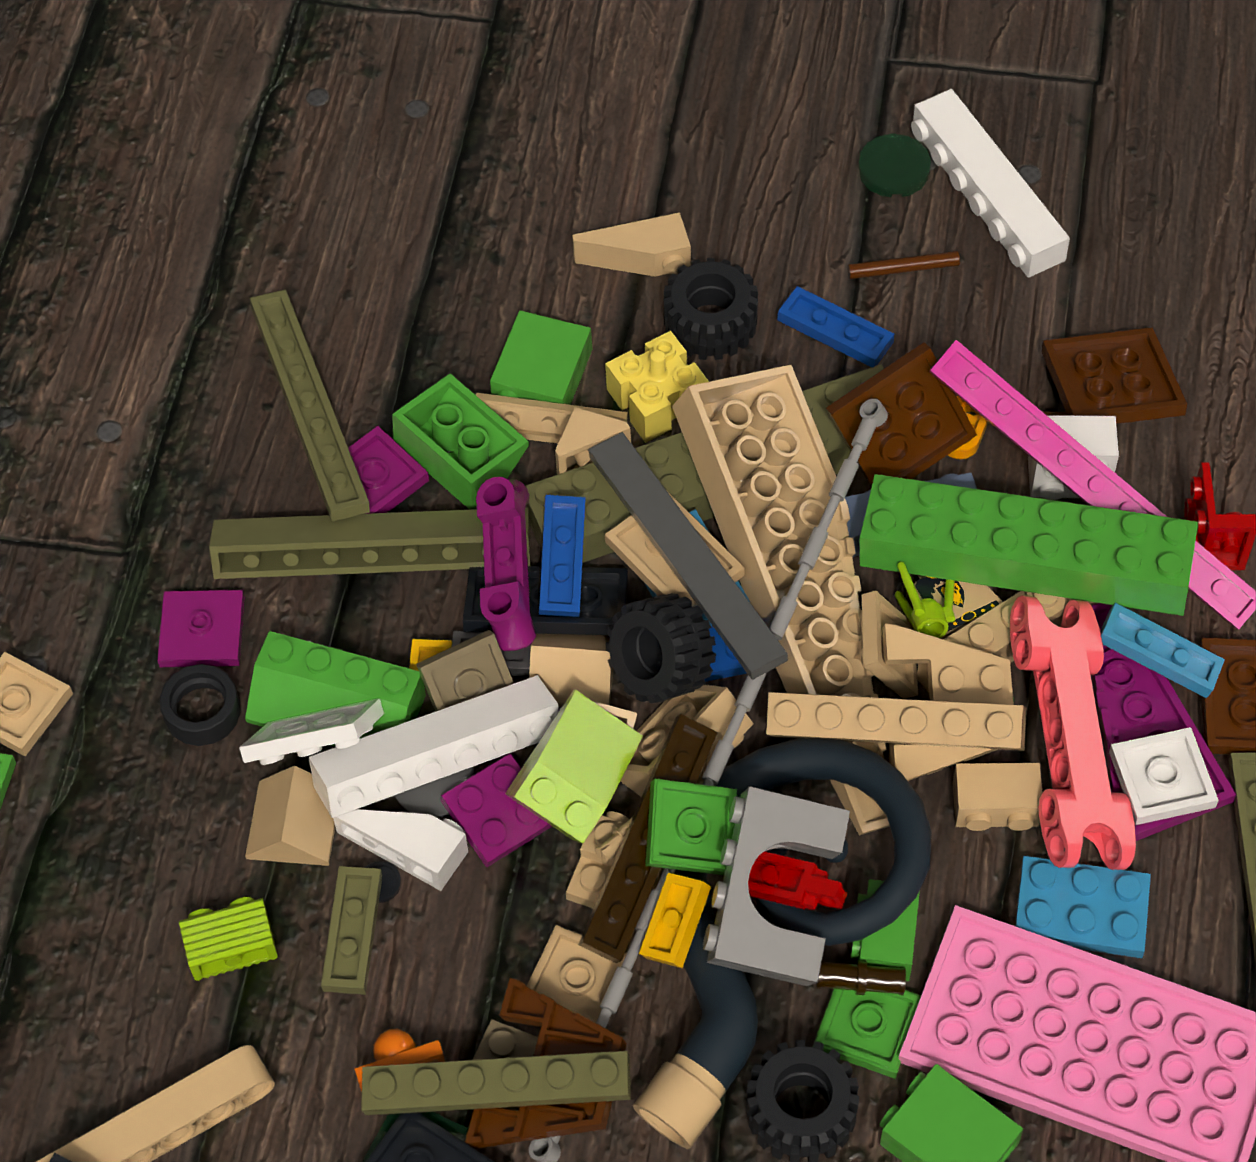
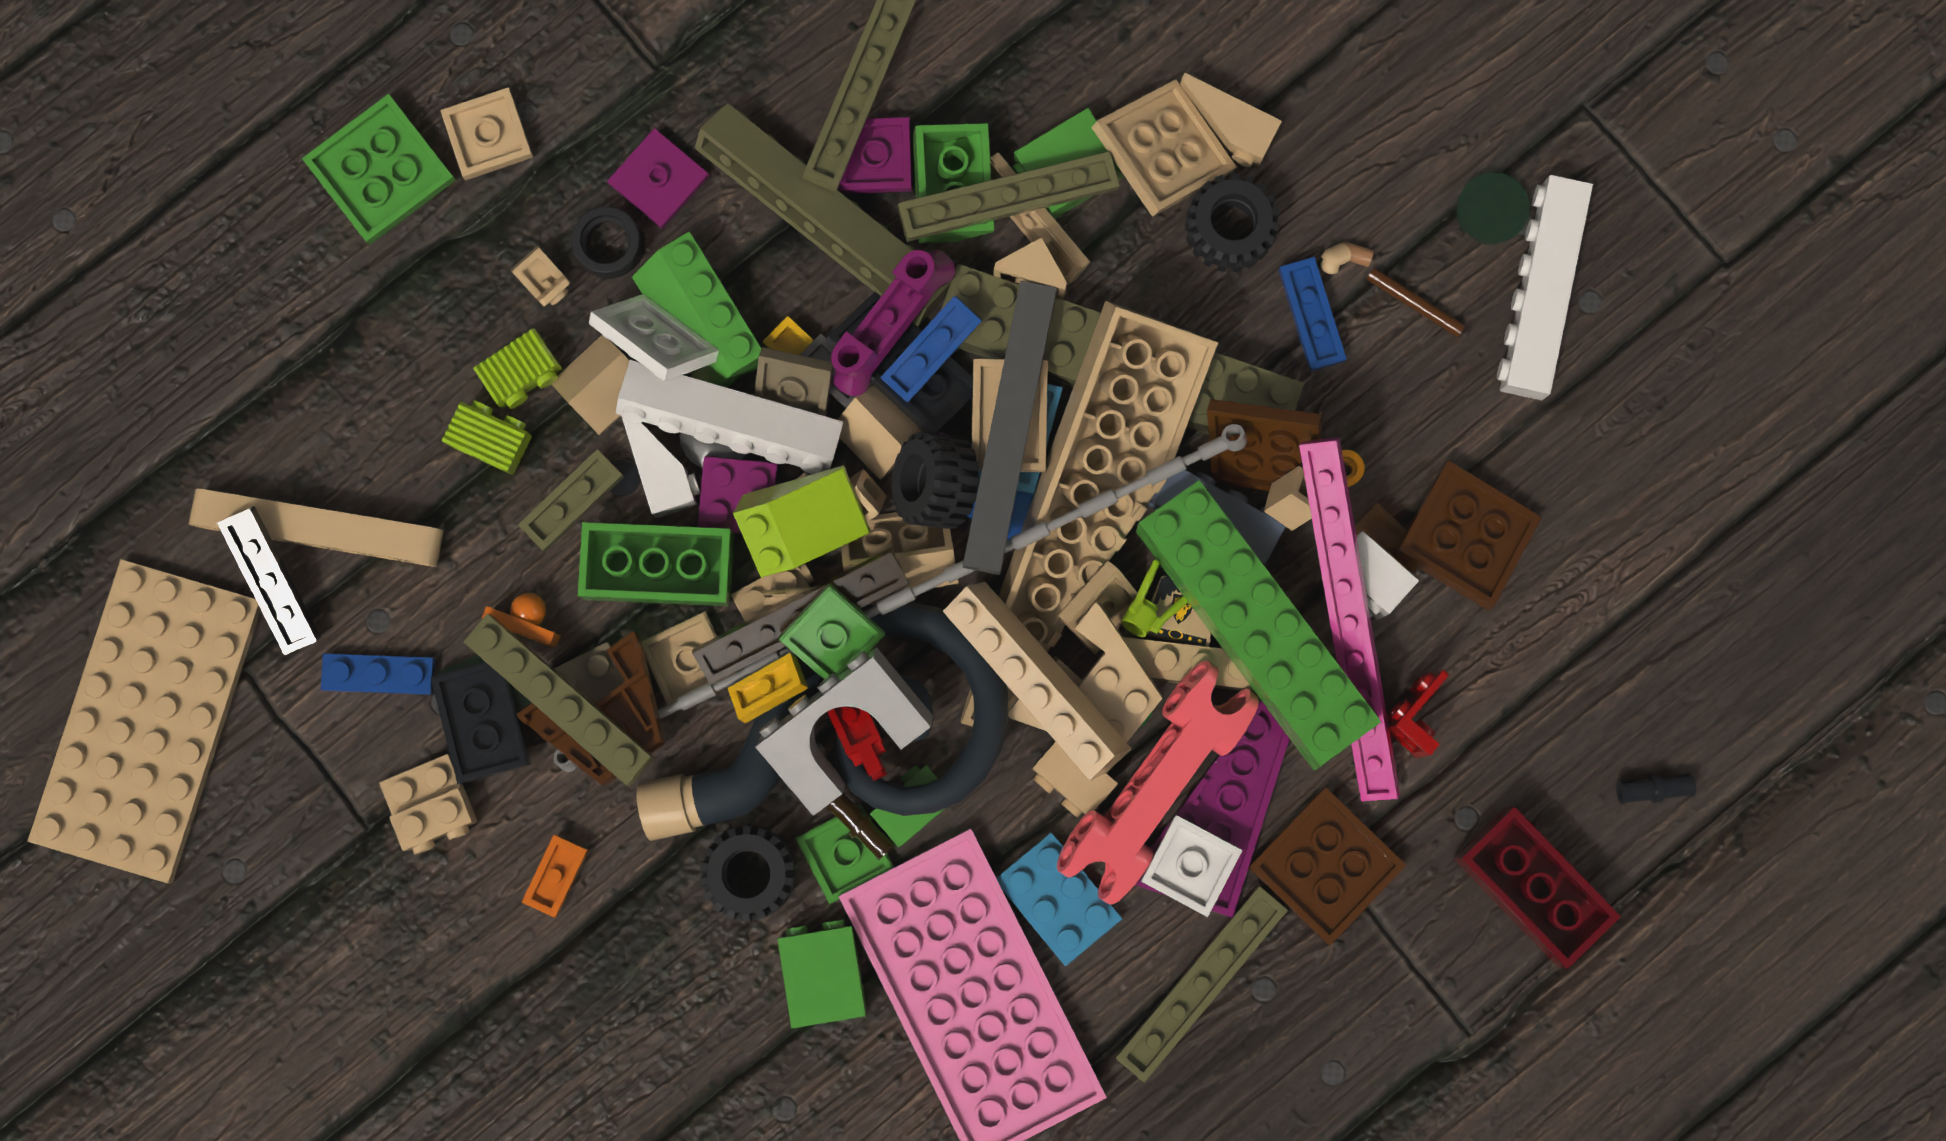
camera: 40 degrees right, 25 degrees up
(164, 774) = (541, 277): none -> tan bracket
(208, 861) = (518, 370): none -> lime brick
(478, 913) = (656, 564): none -> bright green brick
(516, 406) = (1008, 196): none -> olive plate
(605, 295) = (1163, 147): none -> tan plate
(652, 383) = (1135, 256): light yellow brick -> none
(818, 269) = (1342, 253): none -> arm
(959, 441) = (1289, 500): none -> tan brick
(1161, 650) = (1279, 777): dark azure plate -> none

